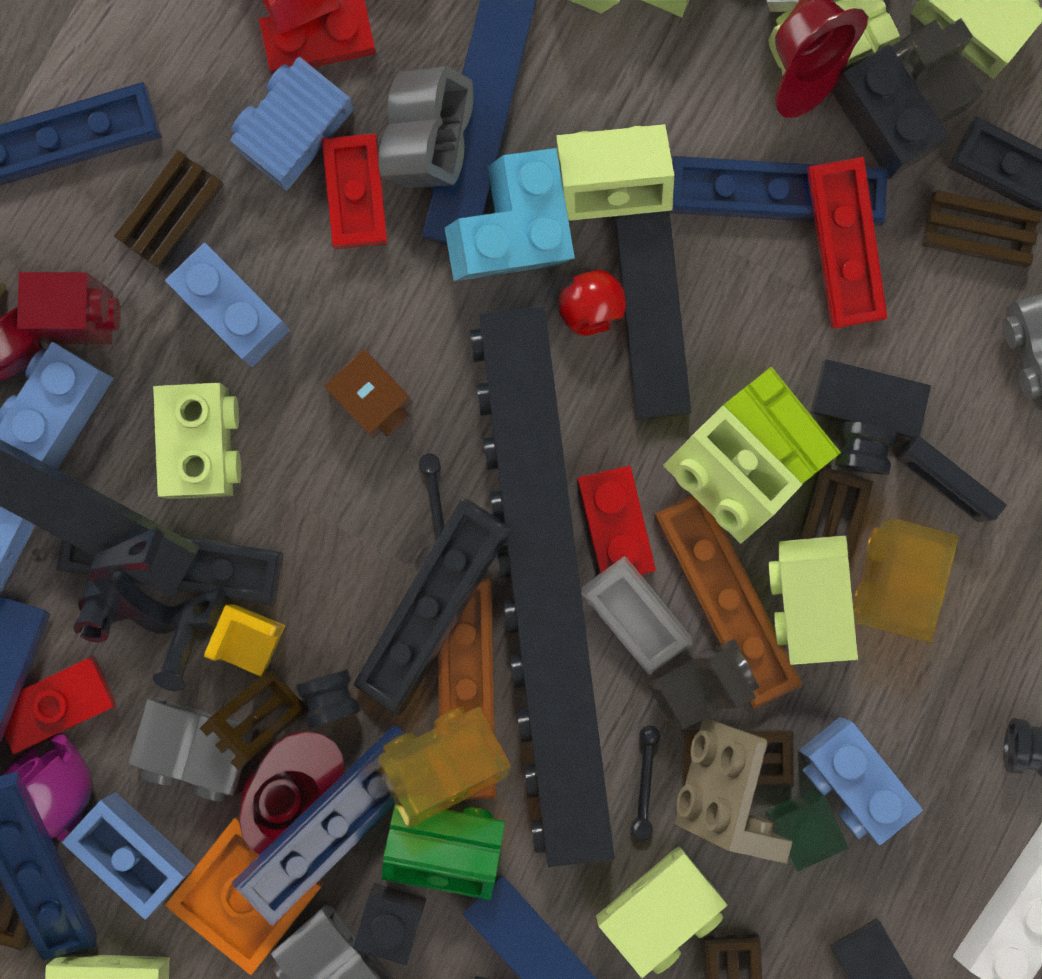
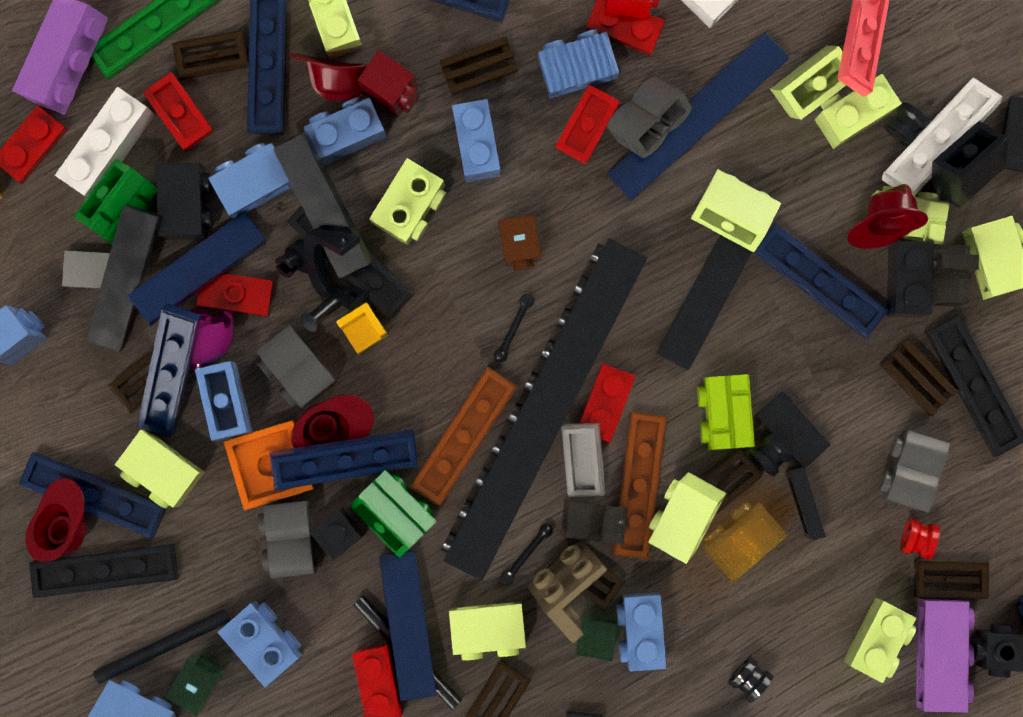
camera: 40 degrees right, 0 degrees up
(232, 738) = (323, 375): dark brown tile -> none
(328, 698) = (386, 390): black wheel -> none
(432, 606) = (476, 378): black tile -> none
(442, 765) = (424, 467): clear yellow brick -> none
(528, 221) = (668, 207): medium azure brick -> none
(592, 303) = (675, 273): red piece -> none
(732, 474) = (686, 417): yellowish green brick -> none
(847, 242) = (838, 335): red tile -> none

